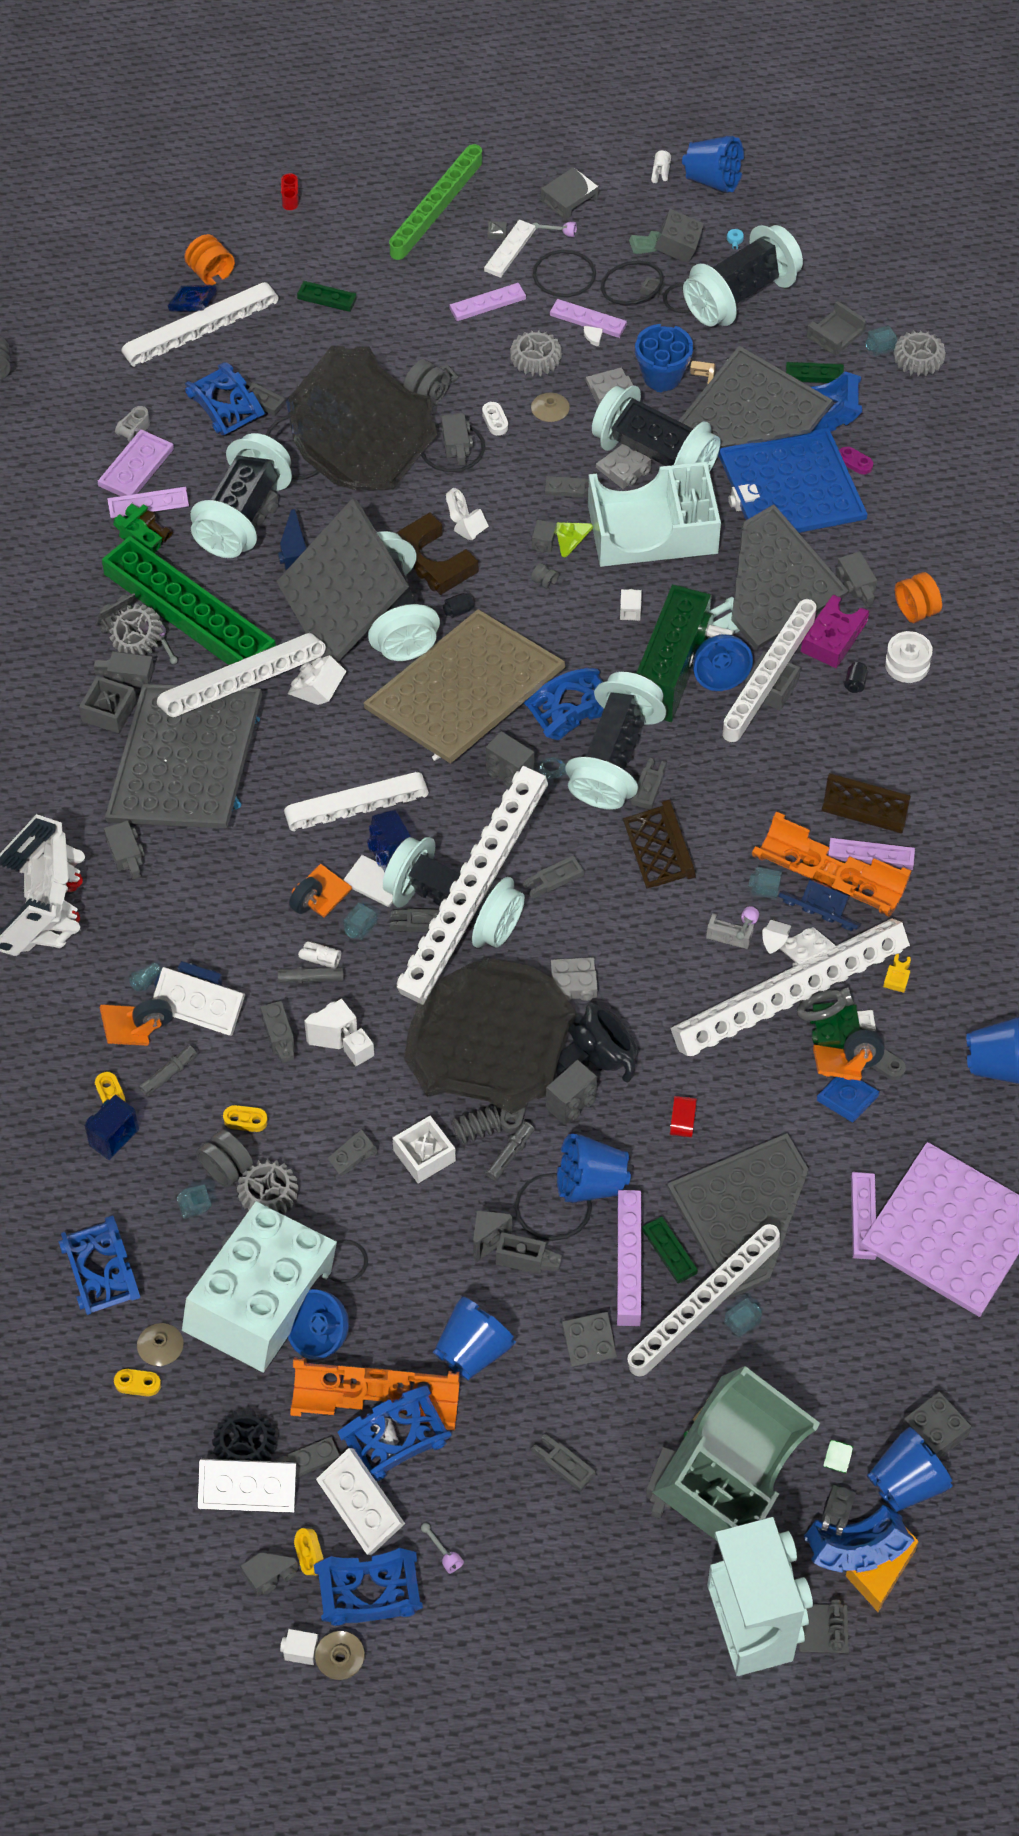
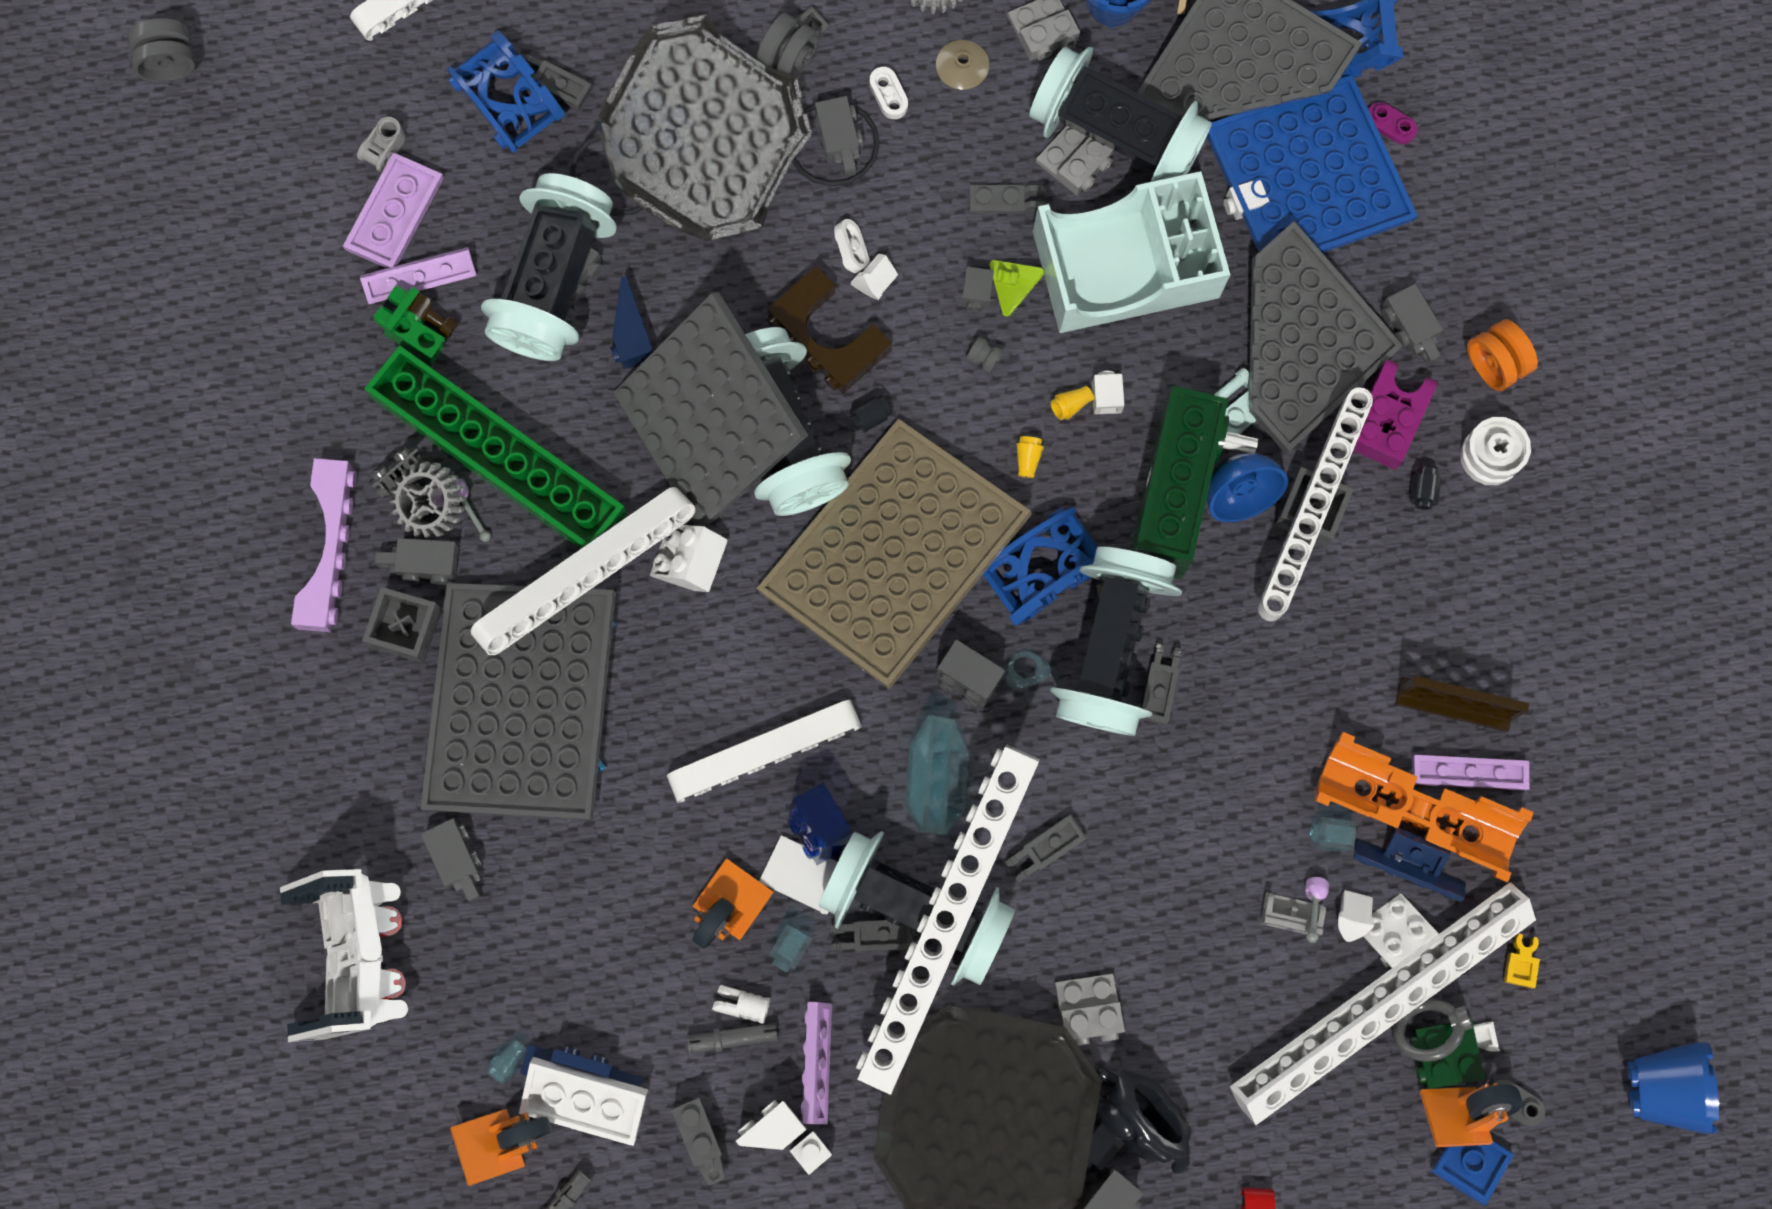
camera: 10 degrees left, 20 degrees up
(48, 688) = (315, 603): none -> lavender arch
(370, 992) = (817, 1063): none -> lavender plate
(475, 815) = (937, 776): none -> clear light blue wedge
(569, 638) = (1028, 453): none -> yellow cone
(603, 609) = (1069, 403): none -> yellow cone
(674, 836) = (1207, 777): dark brown fence -> none

